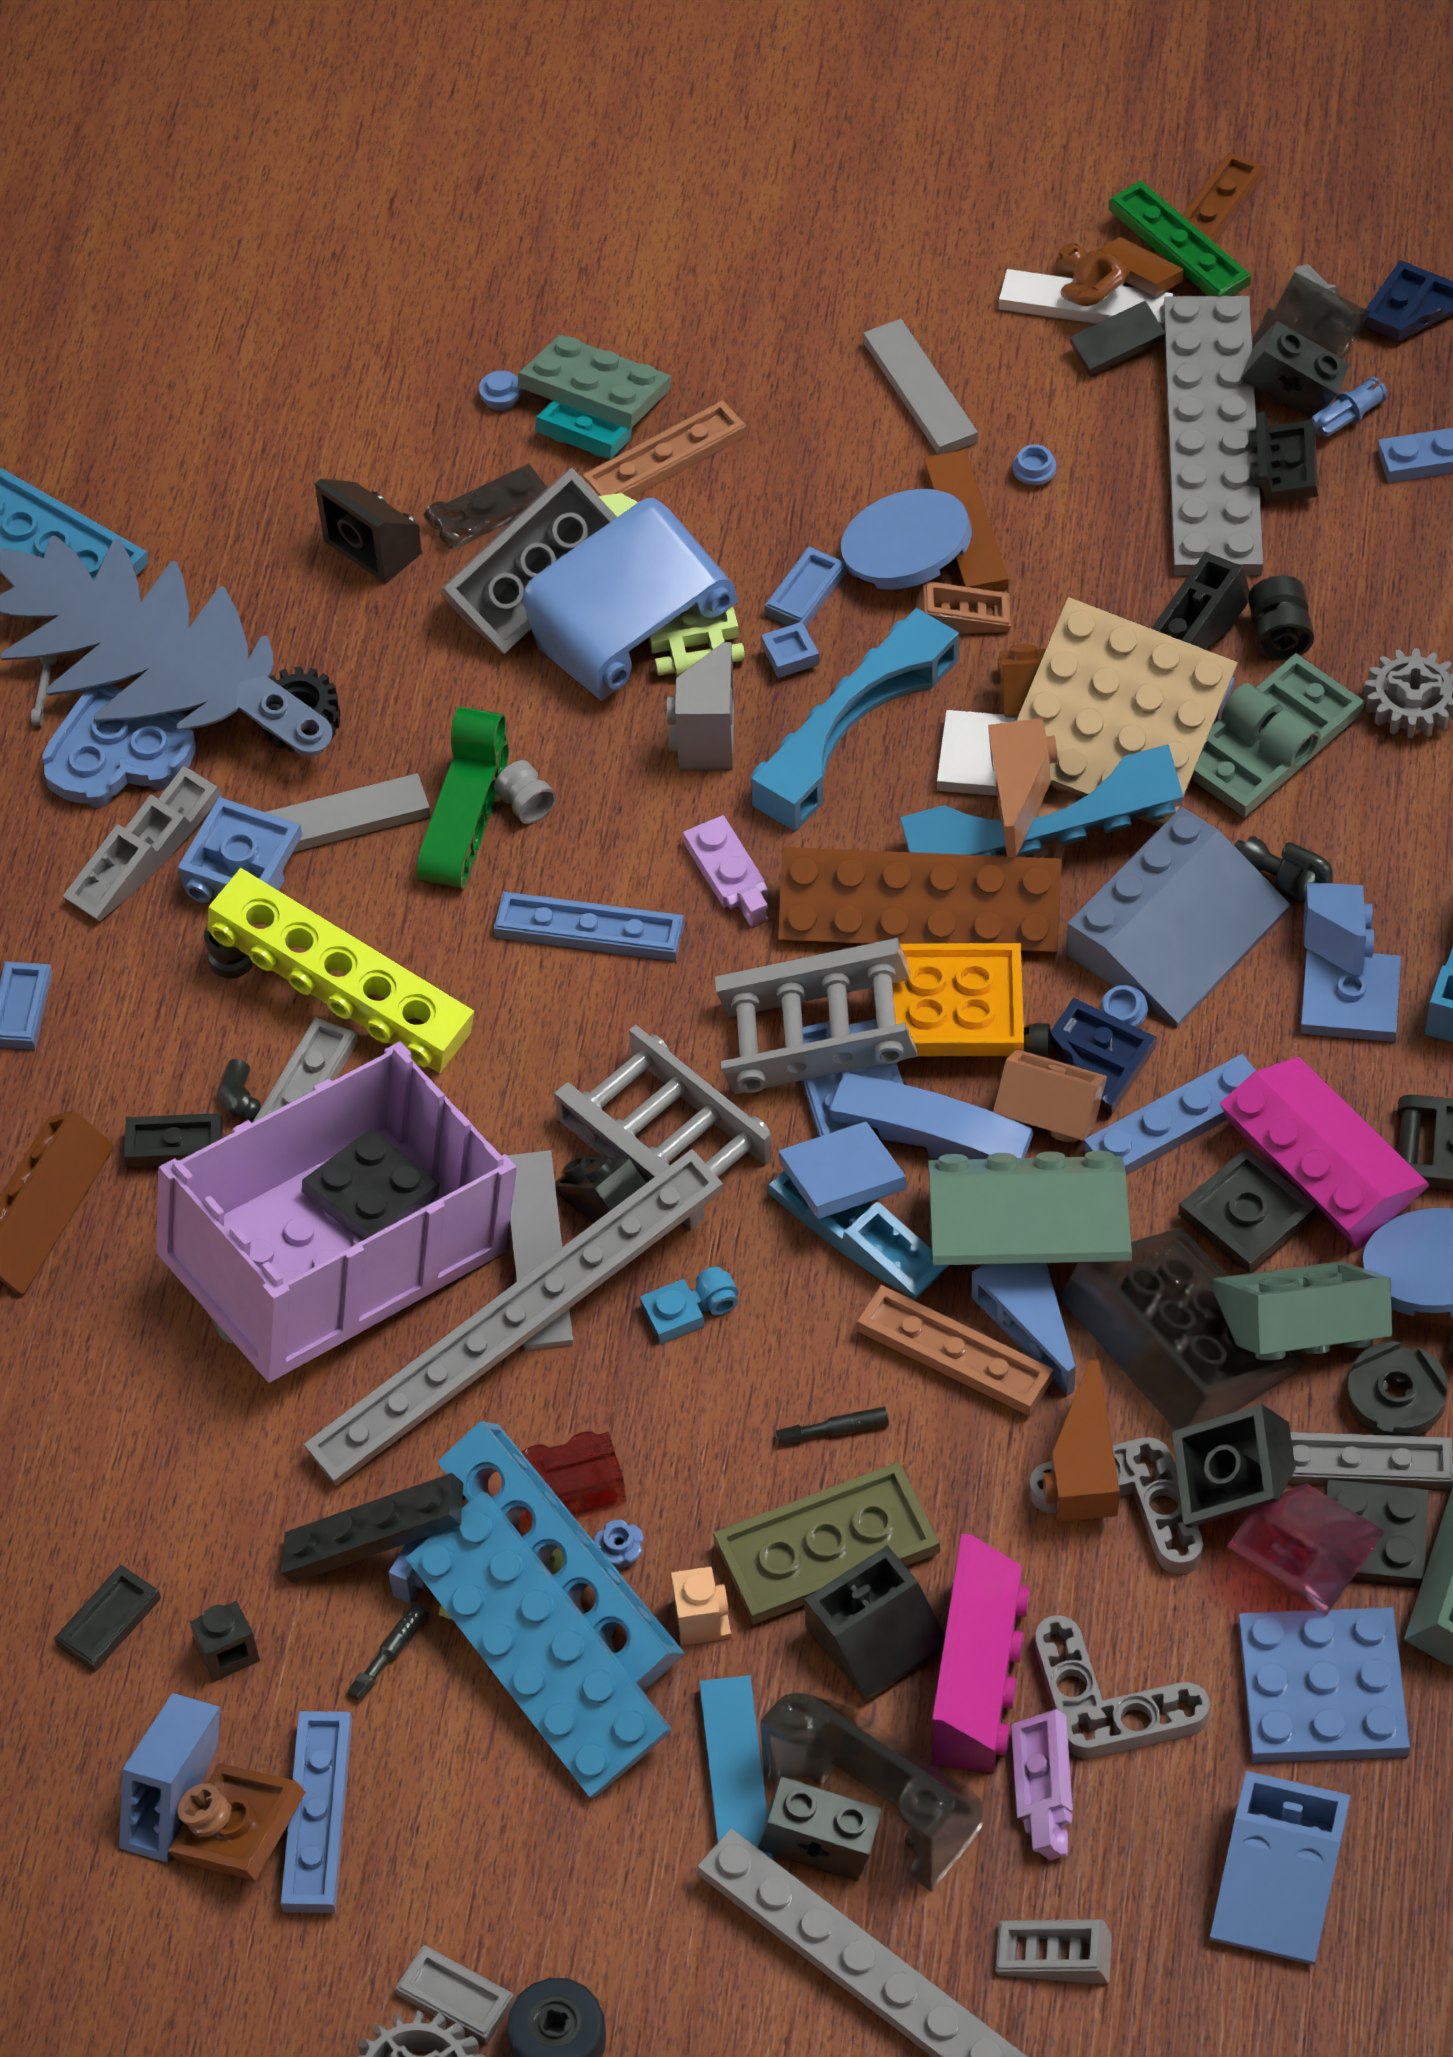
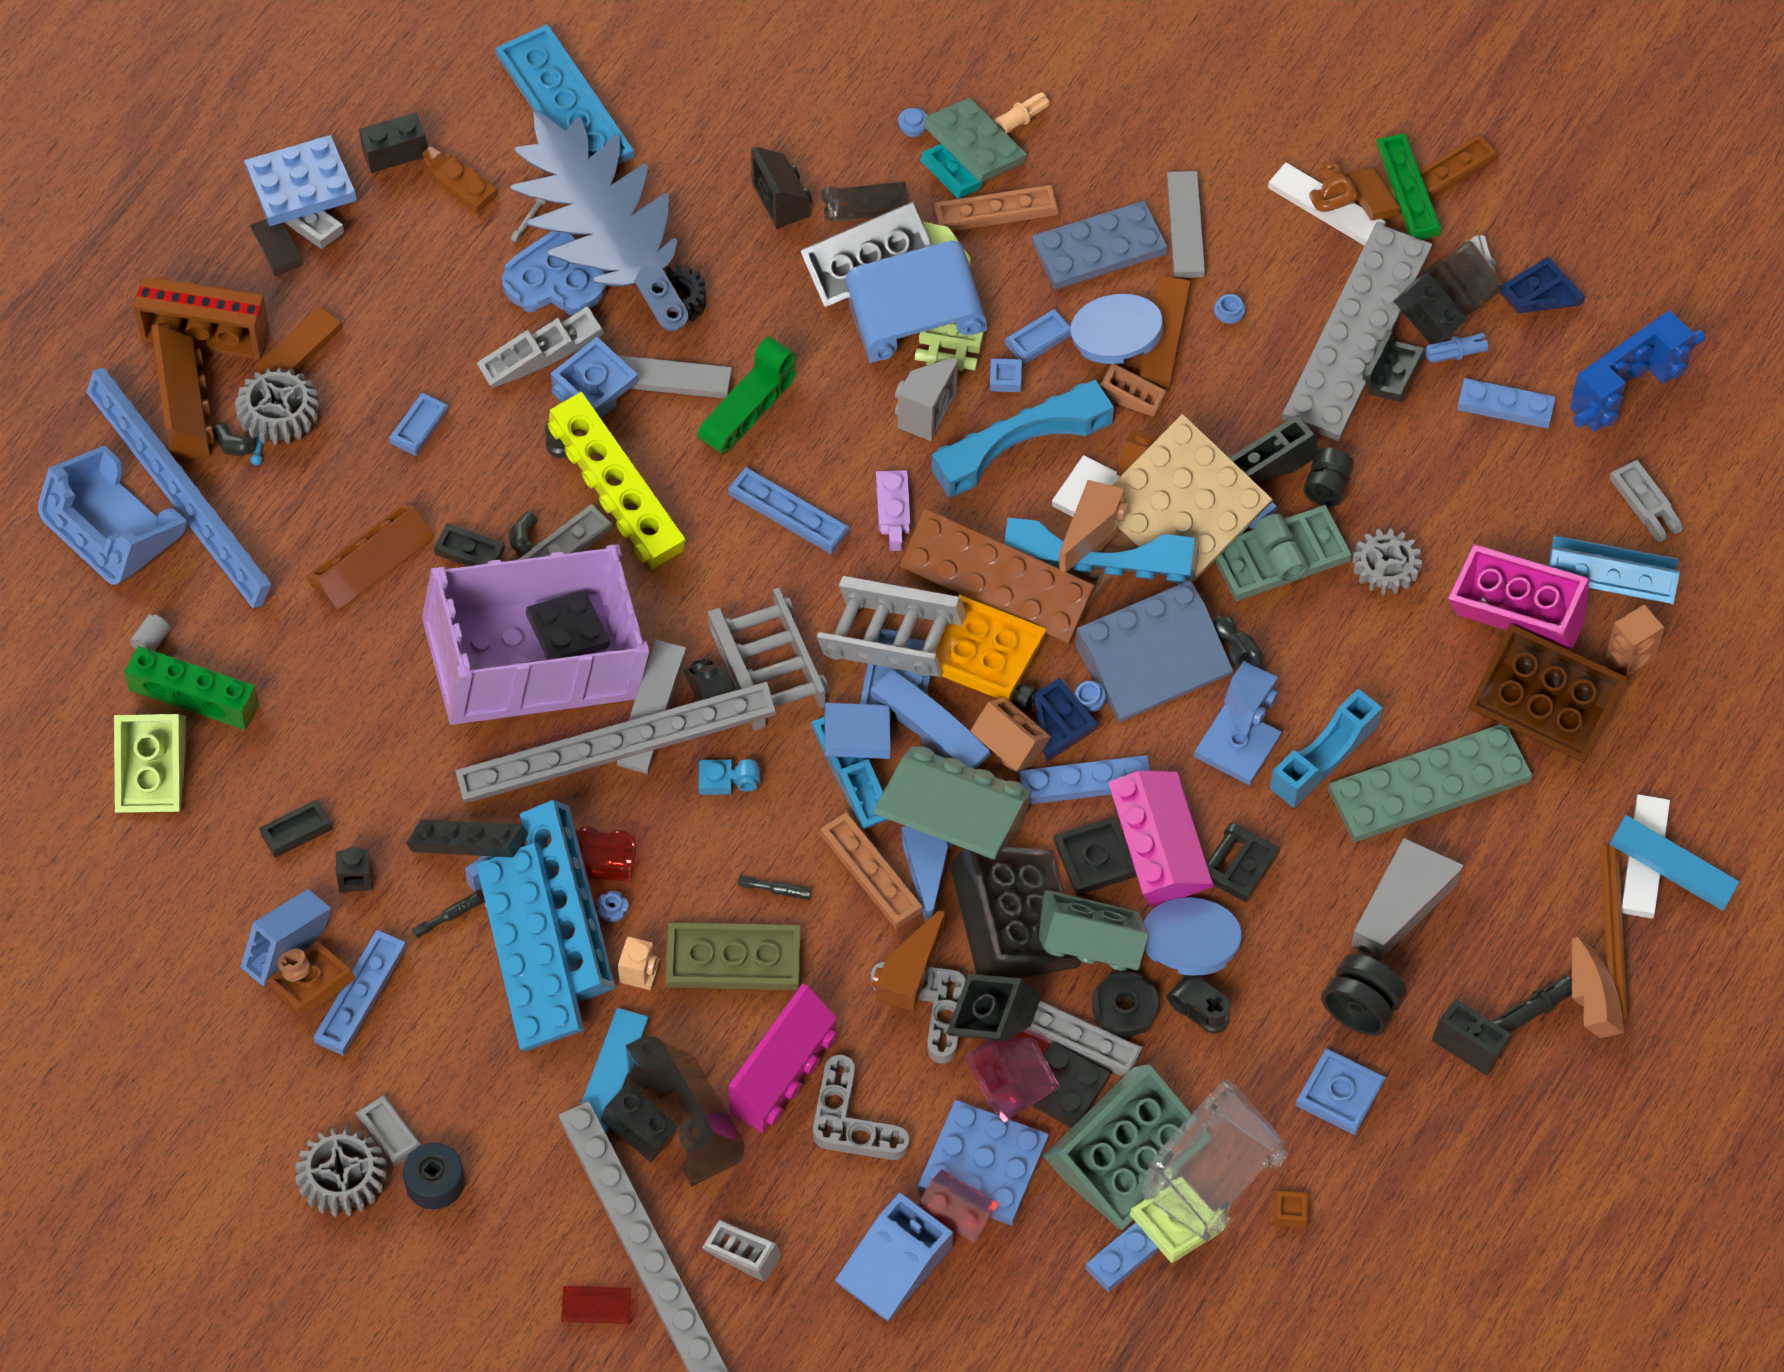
camera: 20 degrees right, 5 degrees up
(529, 796) = (790, 401): light grey wheel -> none
(638, 328) = (1022, 113): none -> light nougat axle
(822, 451) = (1099, 245): none -> sand blue plate
(874, 1623) = (733, 1015): pearl dark grey slope -> none
(1043, 1781) = (785, 1150): lavender hinge -> none
(1117, 338) = (1331, 240): pearl dark grey tile -> none
(1331, 1756) = (958, 1205): none -> clear red brick

